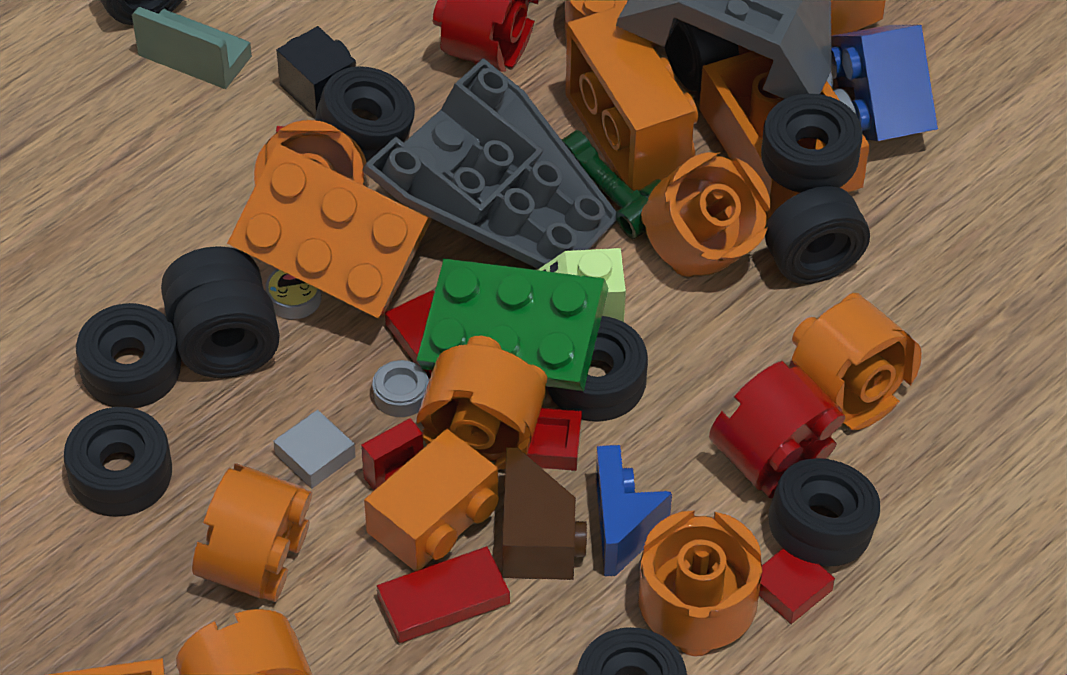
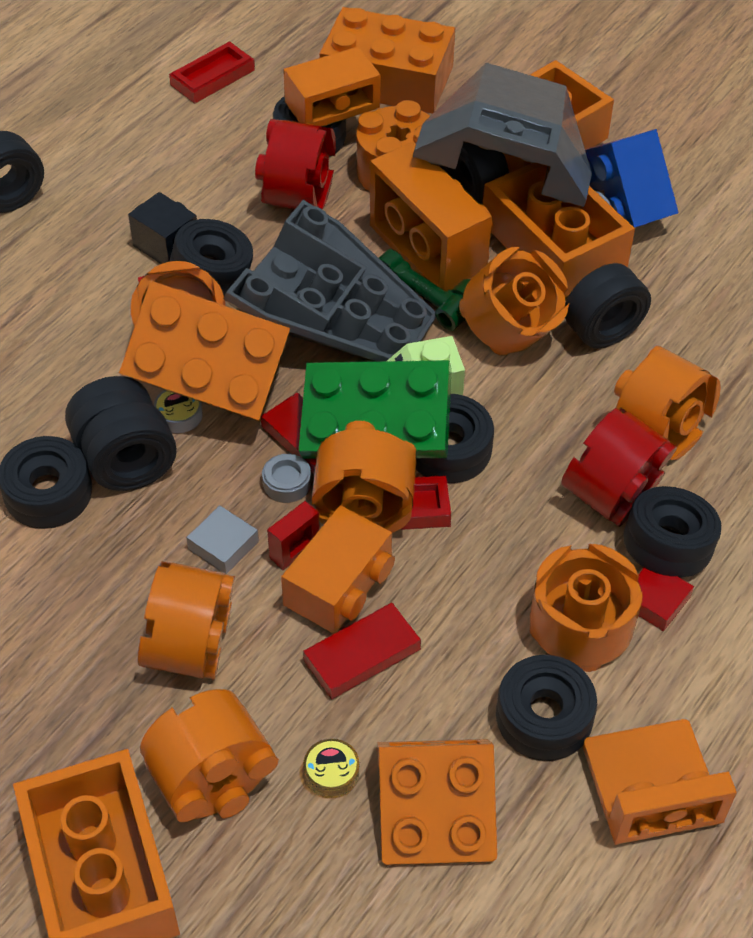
camera: 10 degrees left, 0 degrees up
(123, 490) = (58, 600): black tyre -> none
(190, 46) = (52, 223): sand green panel -> none
(538, 523) = (432, 575): reddish brown slope -> none
(623, 514) = (502, 560): blue slope -> none
(816, 118) = (591, 211): black tyre -> none

